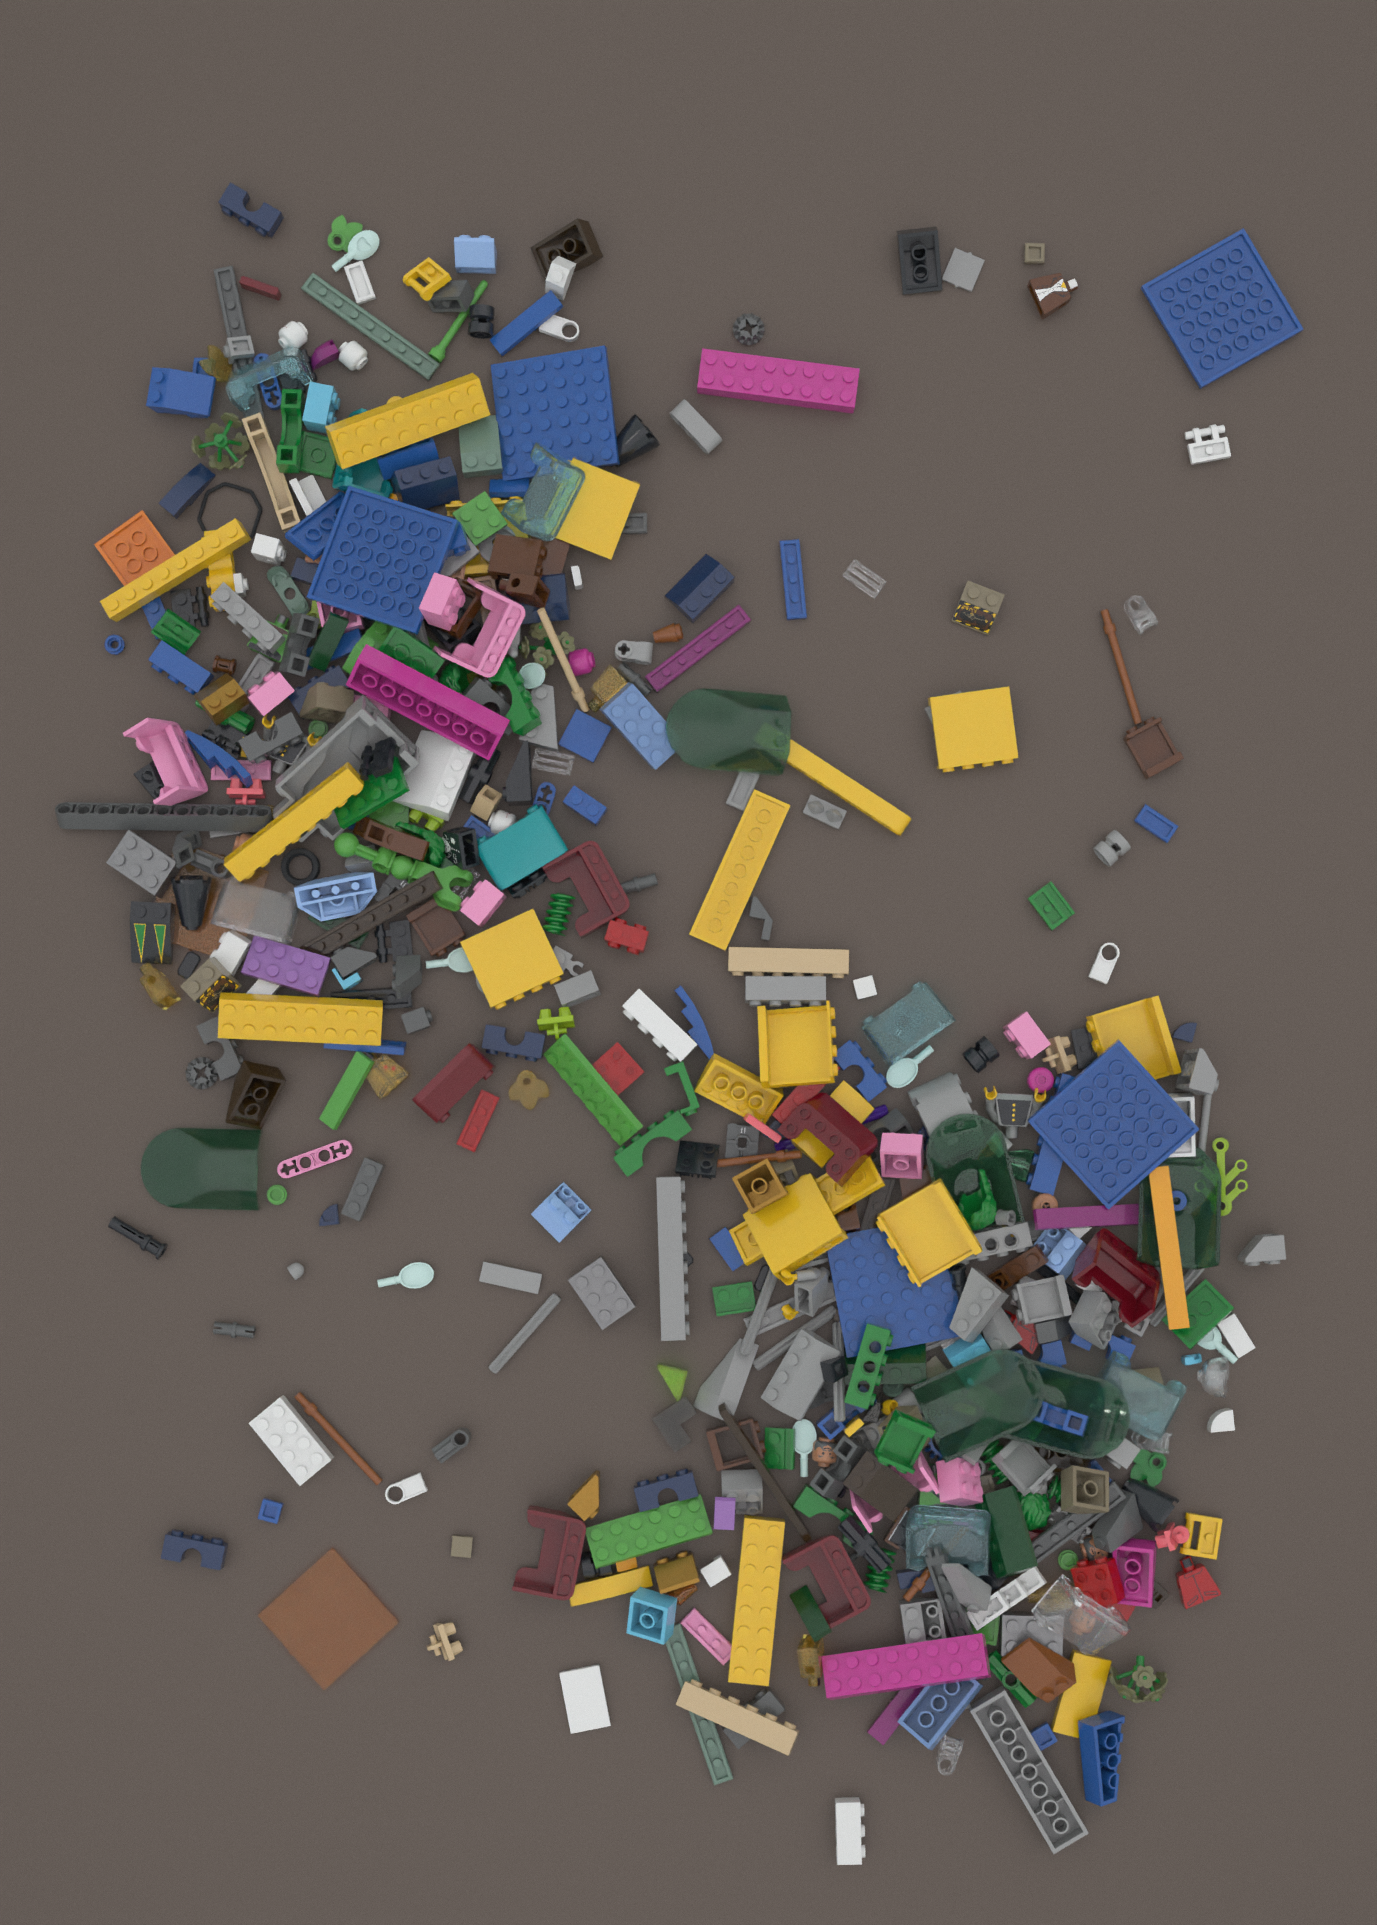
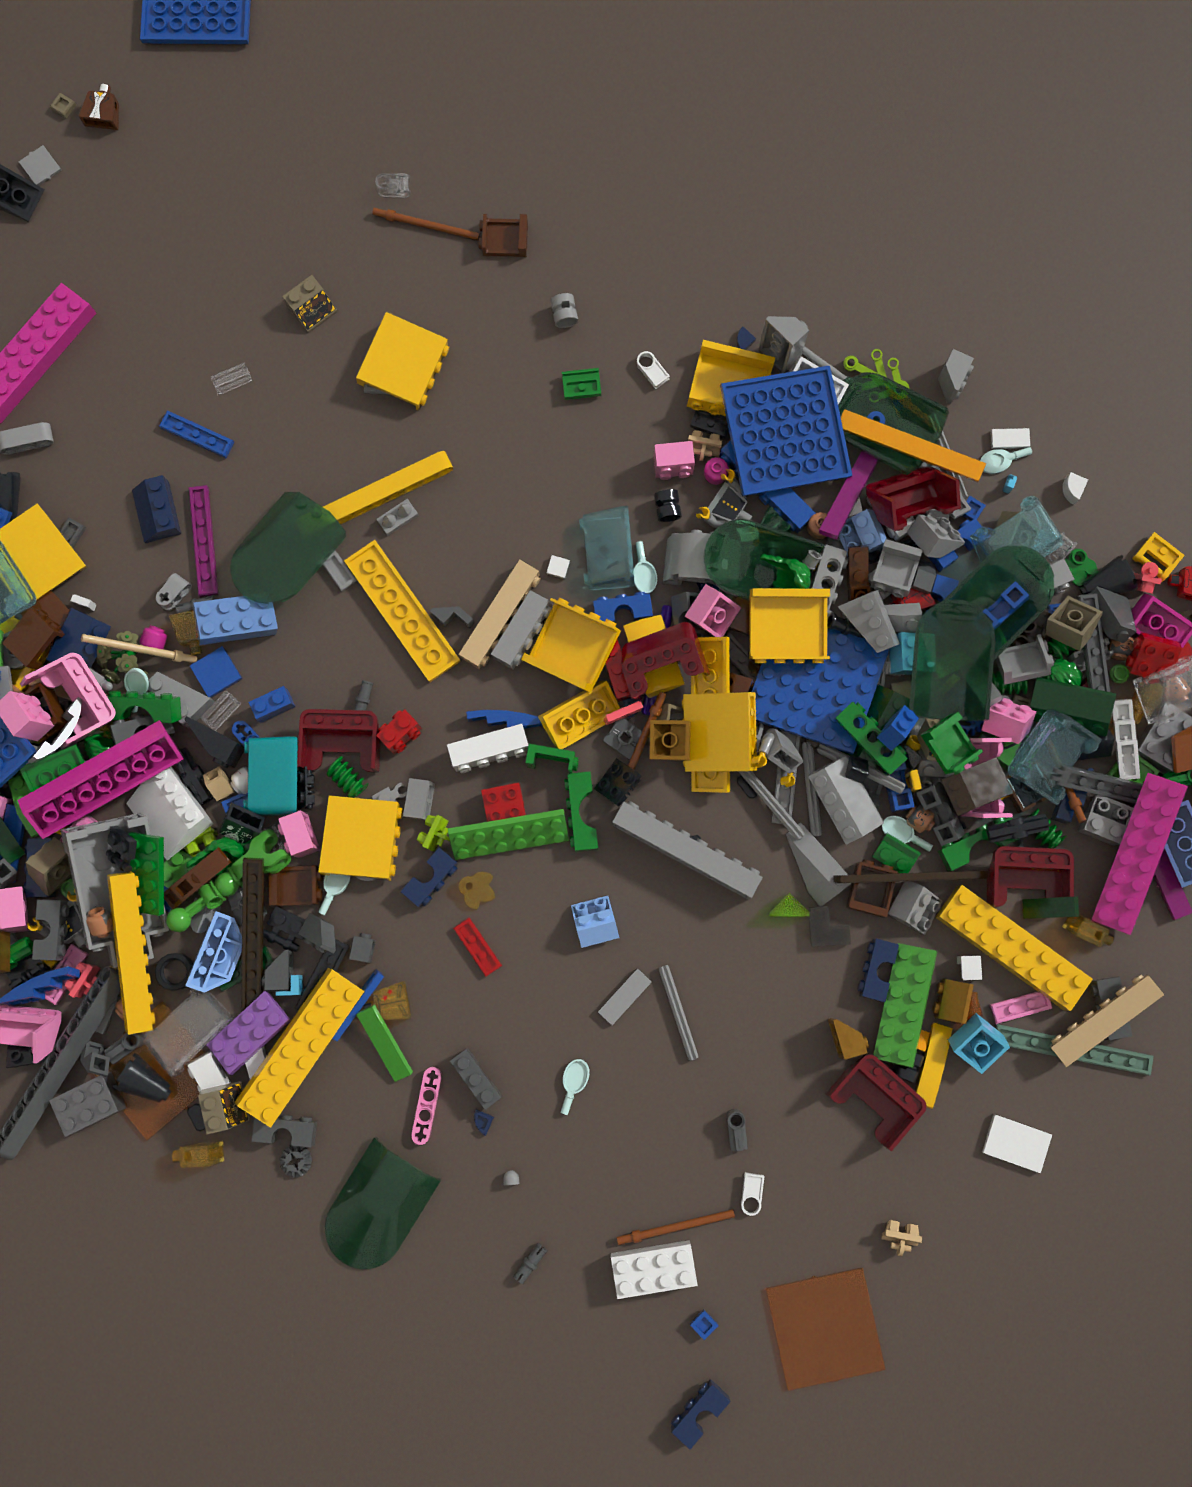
camera: 55 degrees left, 5 degrees down
(146, 1242) = (409, 1297): black pin -> none
(152, 932) = (149, 1132): black slope -> none
(254, 1094) = (340, 1125): dark brown slope -> none
(277, 1194) = (437, 1156): bright green plate -> none
(304, 780) = (99, 922): none -> nougat head
(453, 1082) = (431, 947): dark red windscreen -> none
(461, 1546) = (828, 1173): dark tan tile -> none
(469, 639) = (71, 715): none -> slope
(526, 589) = (59, 642): reddish brown torso -> none
(602, 1292) = (682, 926): flat silver brick -> none
(669, 633) = (176, 556): dark orange cone -> none
(724, 1513) = (926, 931): medium lavender slope -> none
(726, 1247) = (706, 801): blue tile -> none
(734, 1298) = (750, 820): green plate -> none
(889, 1385) = (898, 727): none -> blue brick
(968, 1588) = (1101, 763): light grey slope -> none
(1148, 1339) = (976, 508): none -> blue plate
(1156, 823) = (565, 268): blue tile -> none
(1205, 1311) = (980, 446): green plate -> none
(1208, 450) = (299, 63): white plate -> none
(1214, 1376) = (1035, 471): clear cylinder -> none

